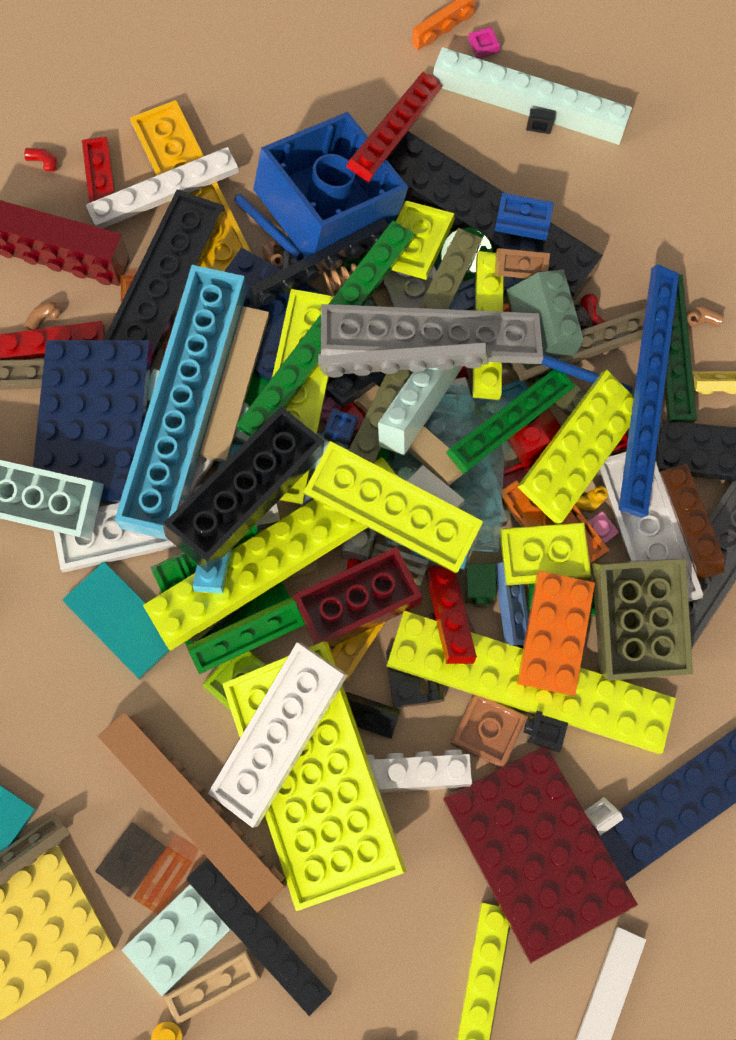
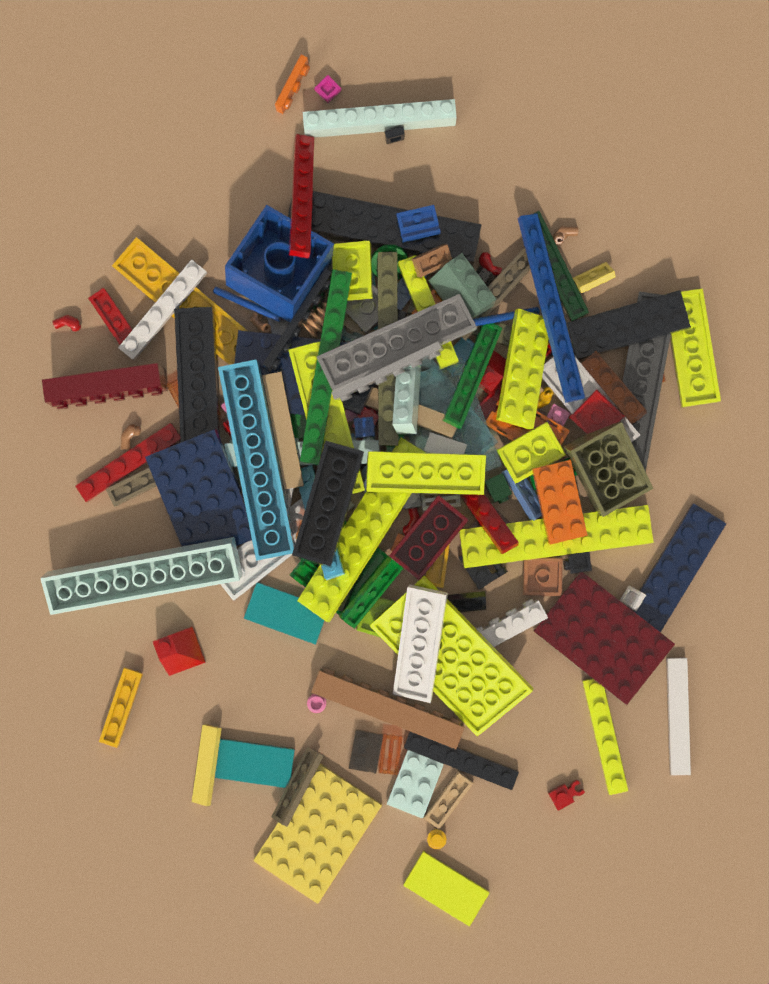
camera: 15 degrees left, 15 degrees up
(98, 759) = (316, 703): none -> bright pink plate
(653, 540) = (596, 413): none -> red tile

